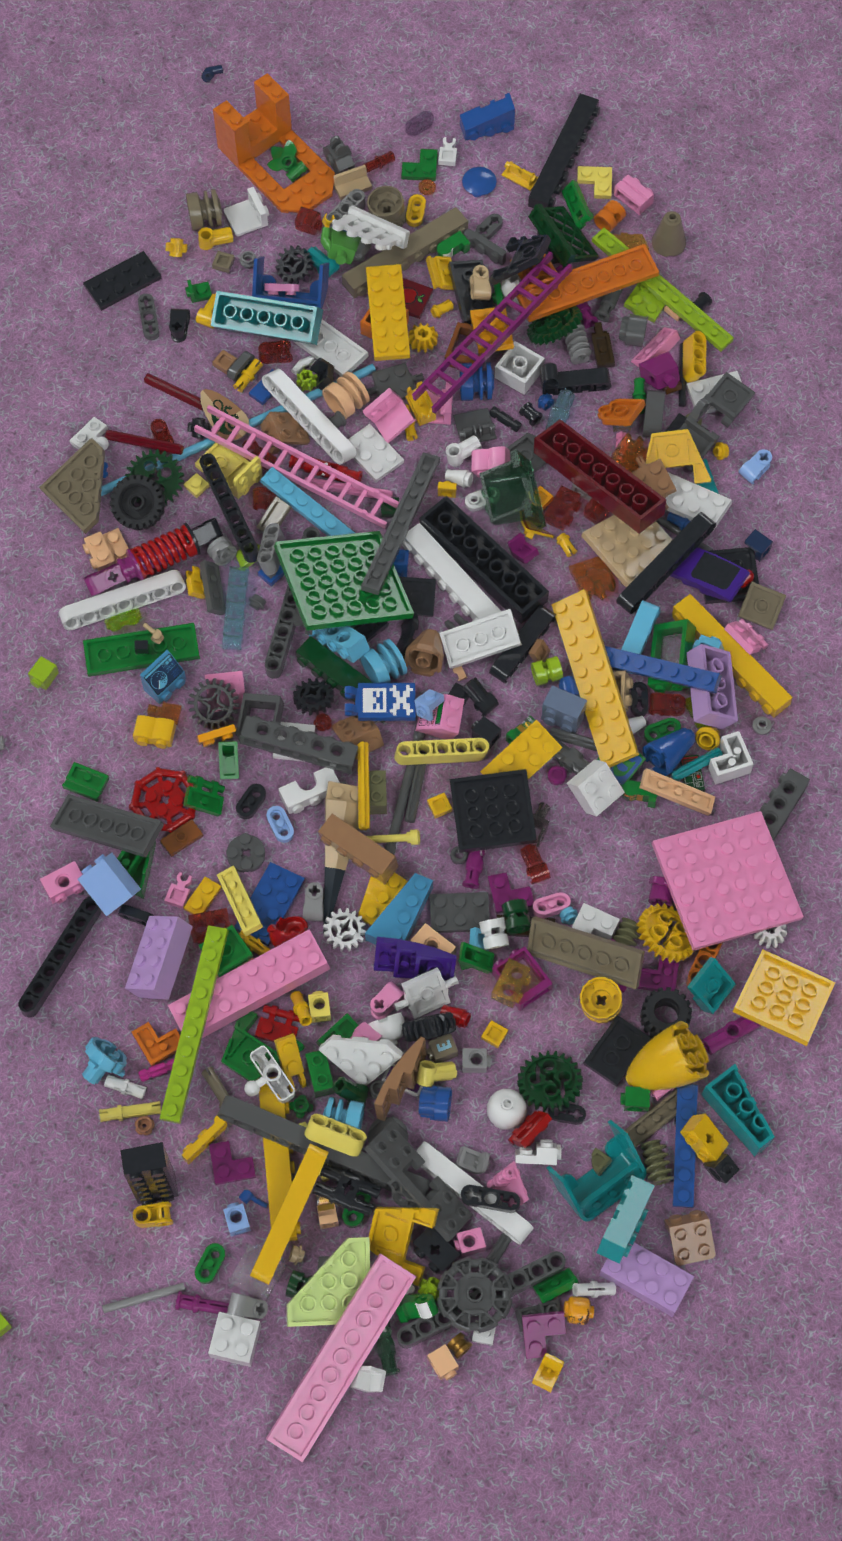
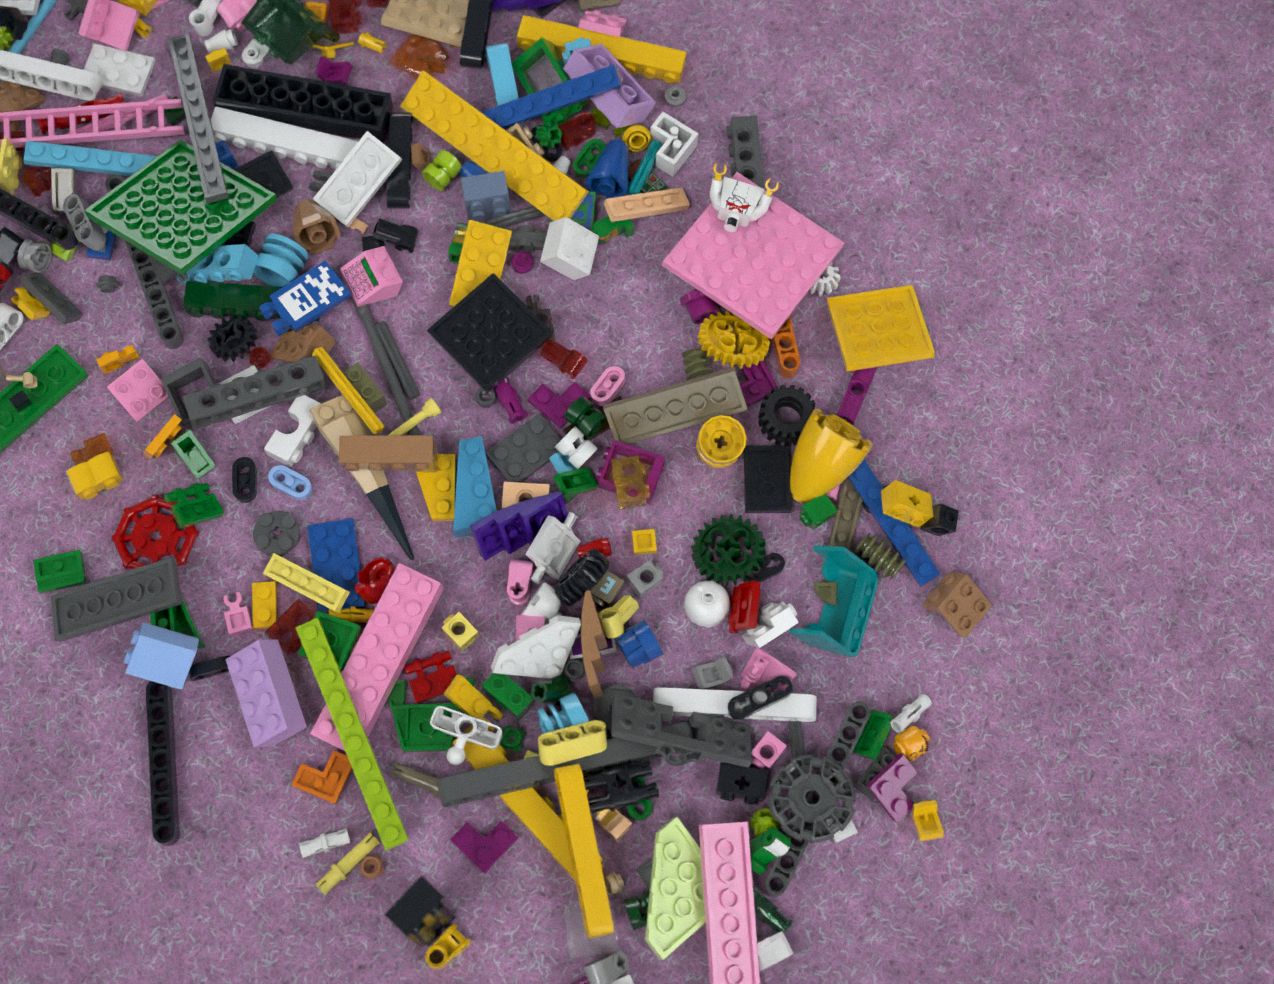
camera: 40 degrees left, 5 degrees up
(52, 883) = (99, 693): bright pink brick -> none
(103, 1060) = (284, 833): medium azure piece -> none
(156, 1070) = (344, 804): dark pink axle -> none
(163, 677) = (65, 417): slope -> none
(181, 838) = (200, 561): dark orange plate -> none
(205, 1138) = (442, 836): yellow plate -> none
(210, 1264) = (537, 953): green plate -> none
(223, 659) = (113, 360): none -> light orange plate
(229, 709) = (133, 394): dark grey gear -> none
(235, 606) = (89, 303): clear light blue beam -> none
(241, 1226) = (542, 891): light blue brick -> none
(246, 1196) = (523, 862): blue hand -> none
(301, 1008) = (443, 645): yellow pin -> none
(314, 905) = (381, 538): light grey piece -> none
(337, 925) = (420, 542): white gear -> none
(344, 1027) = (498, 634): green hinge -> none
(346, 394) = (50, 27): light nougat wheel -> none
(392, 1233) = (690, 793): yellow wing -> none
(407, 633) = (279, 215): black tile -> none
(427, 702) = (352, 272): light blue bracket -> none
(433, 756) = (394, 318): light yellow beam -> none
(439, 805) = (432, 362): yellow plate -> none
(443, 1363) = (827, 883): light nougat brick -> none
(459, 1345) = (829, 856): pearl gold wheel -> none
(486, 729) = (426, 265): black brick -> none
(568, 915) = (631, 384): medium azure plate -> none
(596, 922) = (661, 373): white brick -> none
(626, 1220) = (898, 628): teal wedge -> none
(637, 694) = (548, 134): none -> green gear
(649, 1278) = (947, 666): lavender brick -> none
(711, 986) = (810, 361): teal plate -> none
(738, 1109) = (916, 457): teal wedge -> none
(741, 833) = (738, 201): none -> white torso

